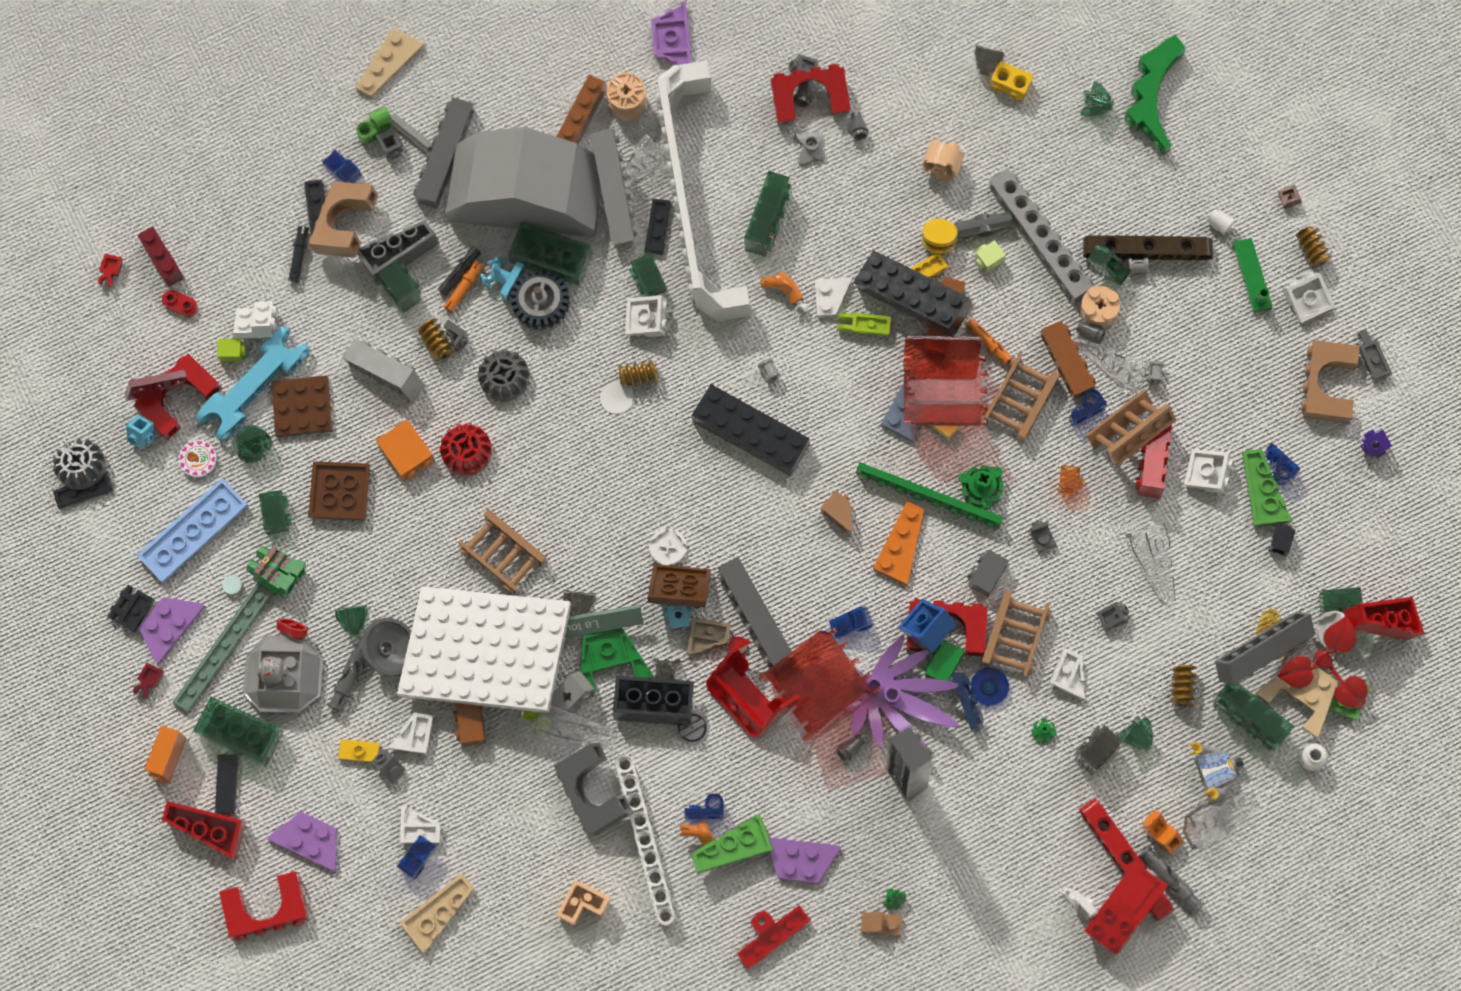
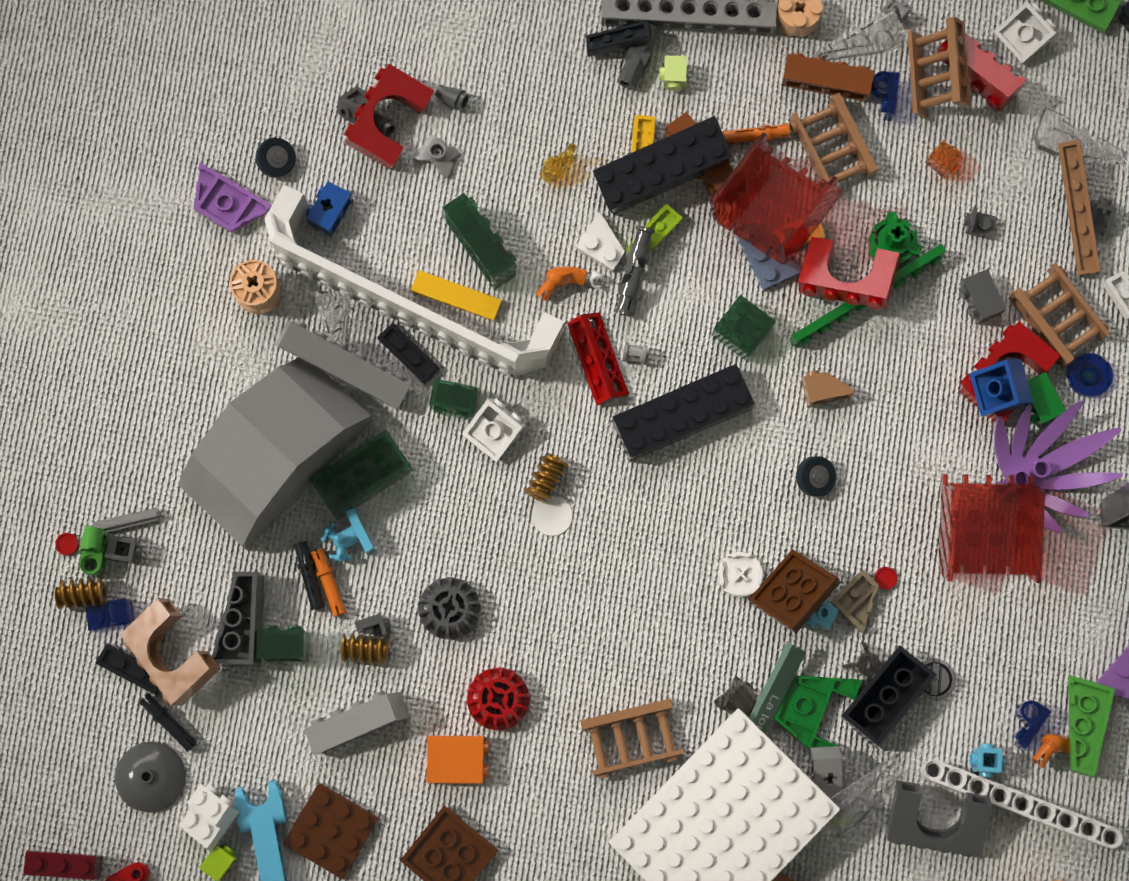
camera: 60 degrees left, 5 degrees up
(256, 280) = (165, 782): none -> dark grey dish
(341, 139) = (80, 593): none -> pearl gold piece
(368, 106) = (66, 544): none -> red piece
(392, 55) = (33, 490): tan wing -> none
(441, 158) = (174, 503): dark grey brick -> none
(540, 299) = (400, 518): wheel -> none
(583, 109) = (236, 341): dark orange brick -> none
(658, 789) = (995, 760): none -> medium azure brick
(721, 228) = (456, 295): none -> yellow tile
(725, 109) = (329, 220): none -> blue brick
(726, 45) = (275, 157): none -> black wheel
(742, 697) = (949, 609): red windscreen -> none
(743, 345) = (594, 358): none -> red fence
(754, 611) = (869, 538): dark grey brick -> none
(772, 548) = (816, 476): none -> black wheel
(815, 332) = (632, 277): none -> dark grey piece
(841, 428) = (743, 328): none -> clear green brick
(850, 747) = (1061, 546): dark grey cone -> none
(854, 620) = (941, 455): clear blue plate -> none
(860, 227) = (556, 166): none -> clear yellow piece
(899, 550) = (898, 360): orange wing -> none
(929, 491) = (870, 291): none -> red arch
(939, 236) = (620, 102): yellow head -> none
(943, 160) = (549, 44): light nougat brick -> none
(968, 701) = (1094, 403): dark blue plate -> none
(984, 202) = (618, 38): none -> black tile
(1092, 332) = (816, 36): dark grey cone -> none
(1103, 593) = (1079, 207): none -> medium nougat plate

